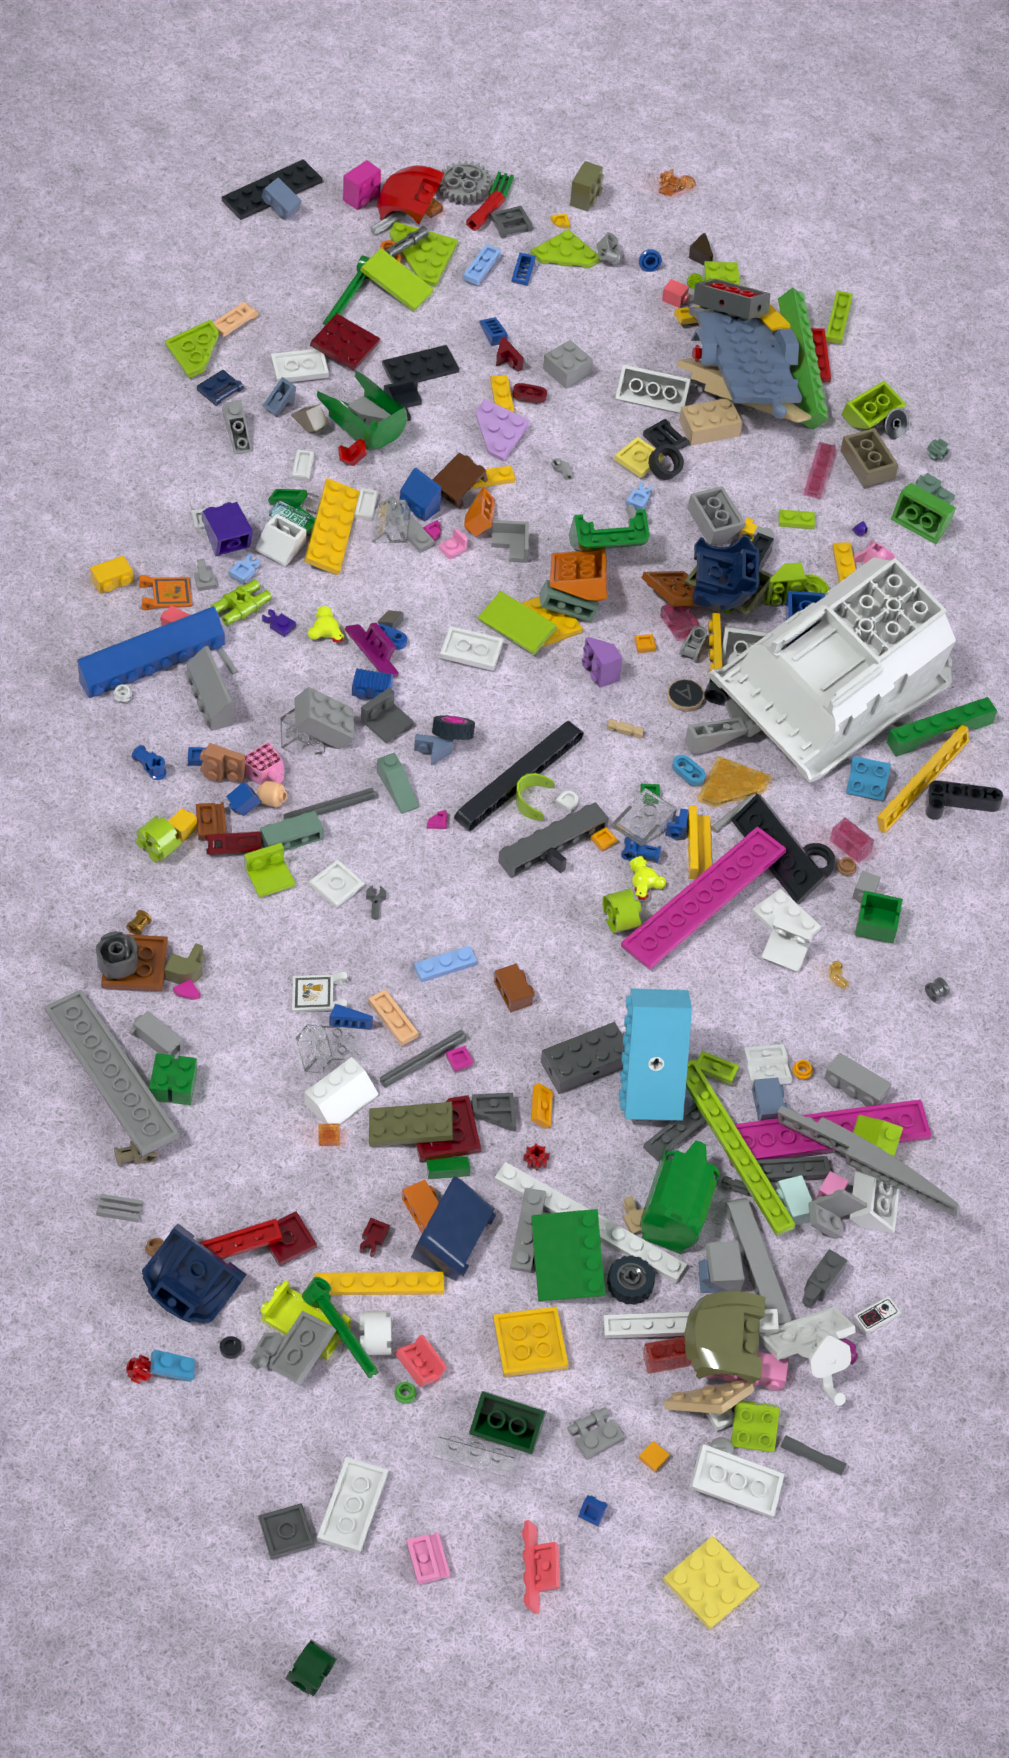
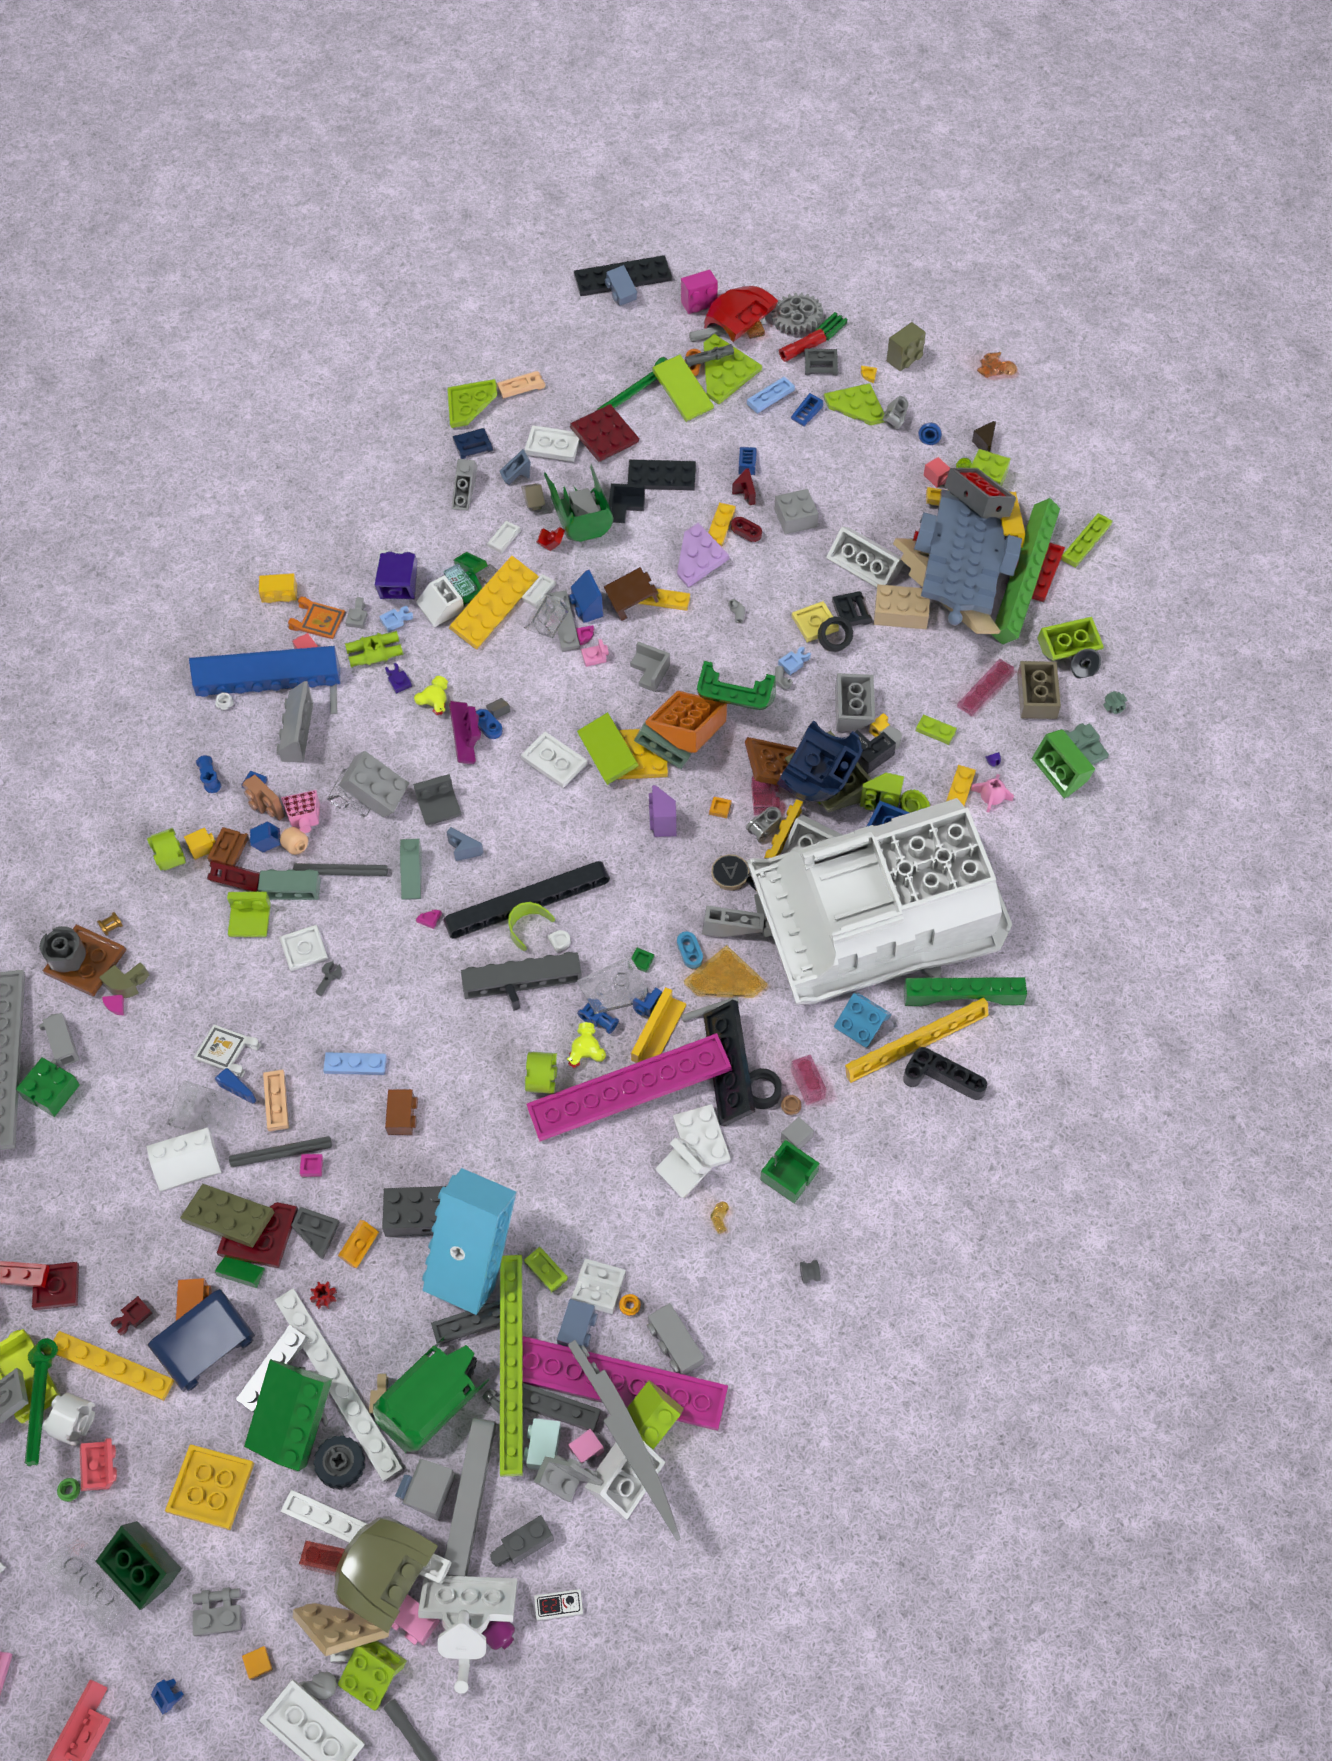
camera: 30 degrees right, 5 degrees up
(329, 1134) = (151, 1195): clear orange plate -> none
(370, 683) = (440, 763): blue brick -> none
(453, 727) = (488, 832): black wheel -> none
(480, 513) = (634, 630): orange slope -> none
(604, 839) = (571, 991): light orange tile -> none
(625, 728) = (653, 886): tan axle -> none

